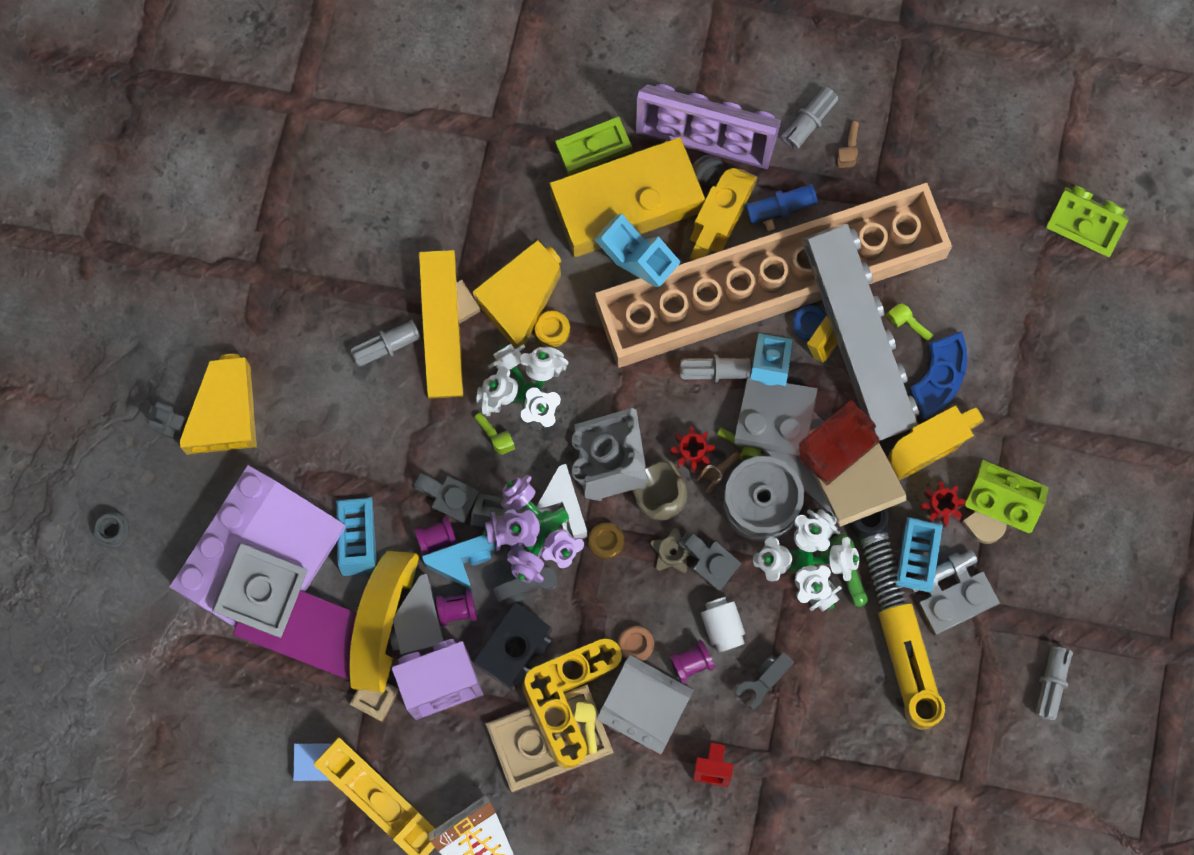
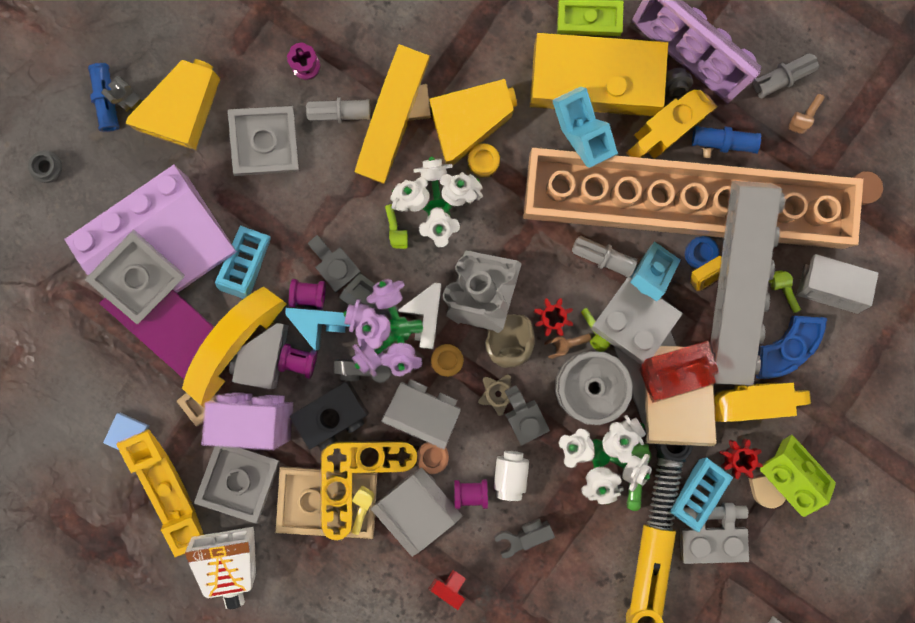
camera: 25 degrees right, 10 degrees up
(141, 435) = (105, 109): none -> blue pin
(323, 406) = (263, 140): none -> light grey plate
(326, 320) = (294, 61): none -> magenta bush
(449, 758) = (237, 482): none -> light grey plate
(606, 601) = (422, 414): none -> light grey slope
(942, 189) = (871, 187): none -> nougat tile
(955, 294) = (837, 284): none -> light grey hinge

